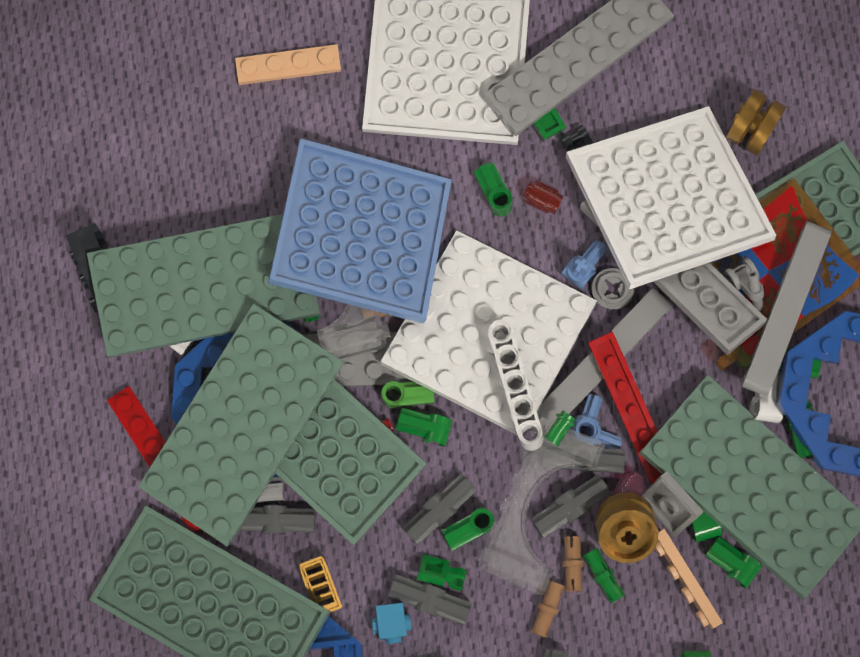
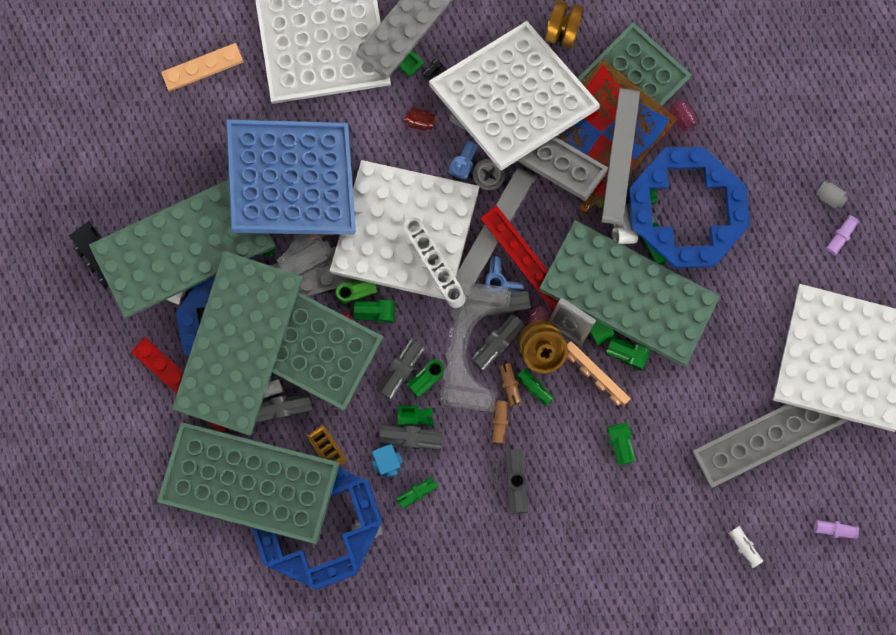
camera: 15 degrees left, 0 degrees up
(493, 188) = (381, 121): green piece -> none
(560, 428) = (475, 285): green pin -> none
(747, 278) = (586, 141): light grey piece -> none

